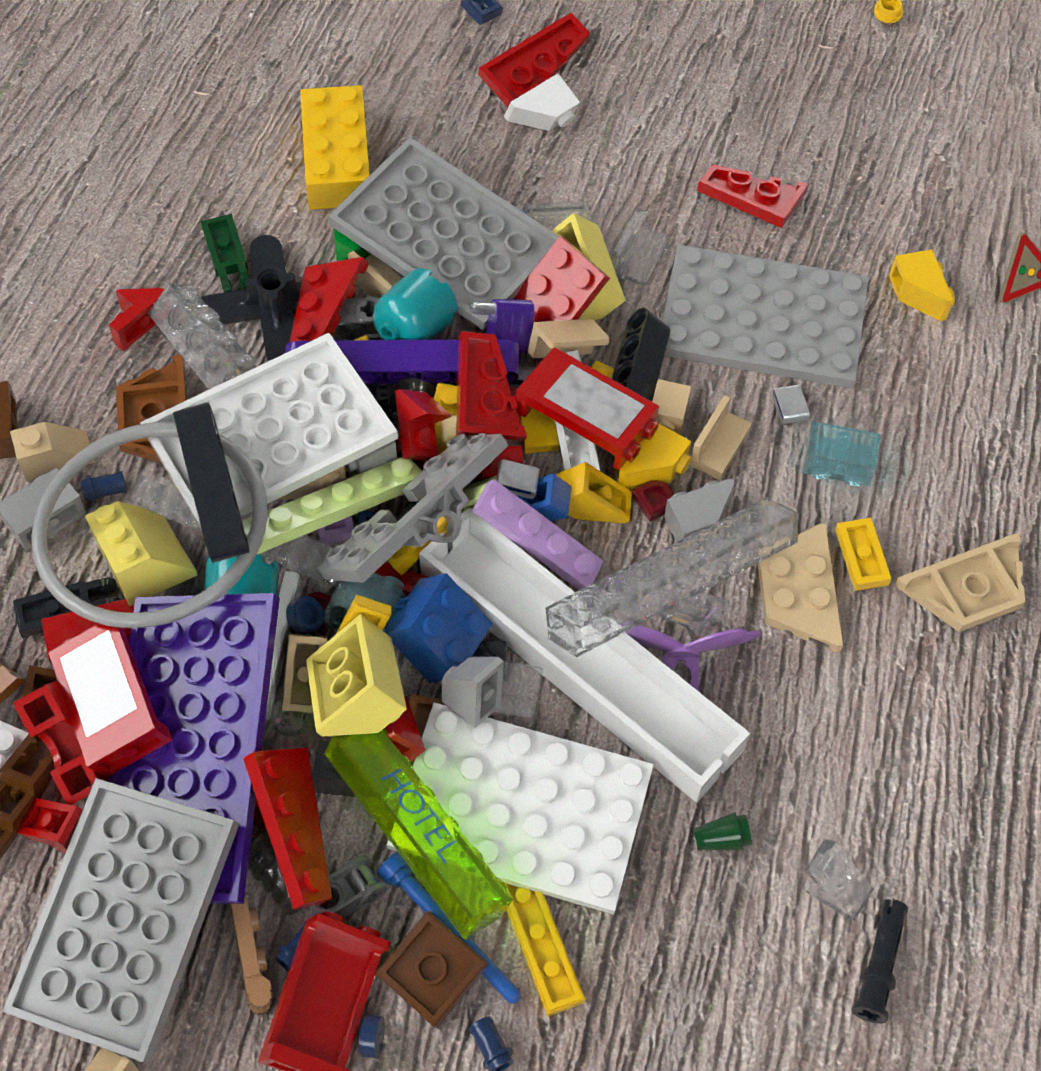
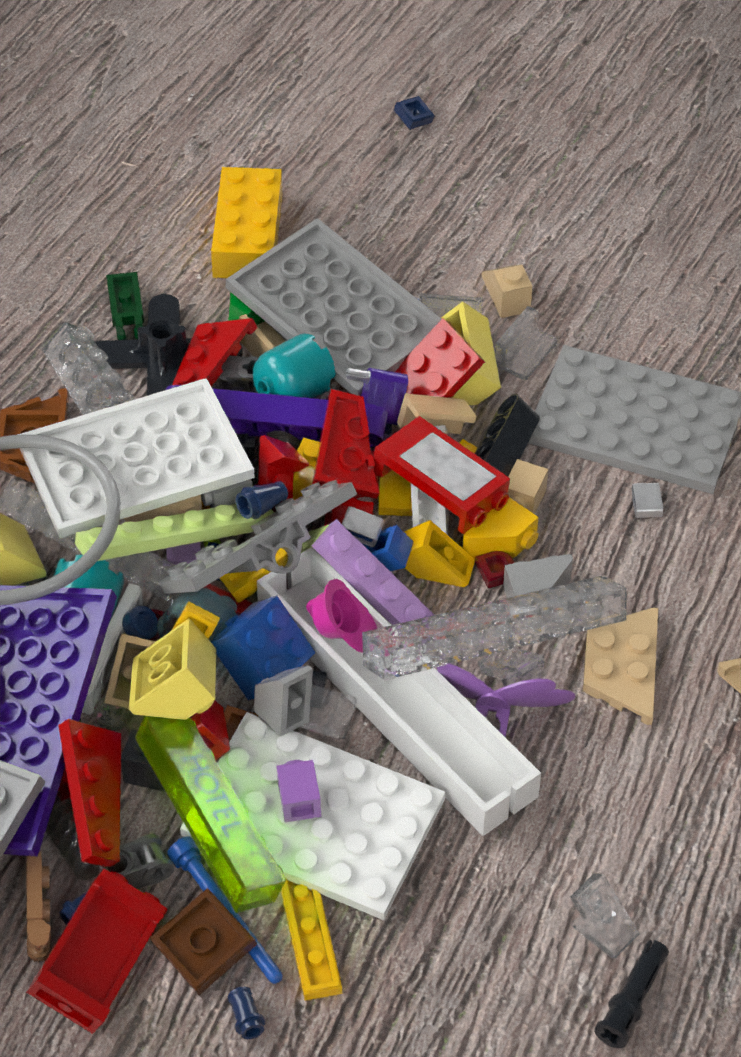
camera: 10 degrees right, 10 degrees down
(134, 320) = (28, 353): red slope -> none
(211, 483) = (70, 486): black beam -> none
(371, 1036) = (136, 989): dark blue tile -> none
(407, 462) = (259, 499): none -> dark blue cone
(506, 789) = (298, 790): none -> medium lavender brick
(517, 585) = (340, 615): none -> dark pink piece
(534, 59) = (450, 170): red wing -> none
(544, 106) = (456, 206): white slope -> none
(612, 189) = (509, 289): none -> tan slope
(719, 441) = (568, 522): tan panel -> none
(724, 833) = (503, 864): dark green cone -> none
(759, 197) = (656, 313): red wing -> none
(841, 454) = (686, 548): clear light blue brick -> none
(863, 554) = (689, 639): yellow plate -> none

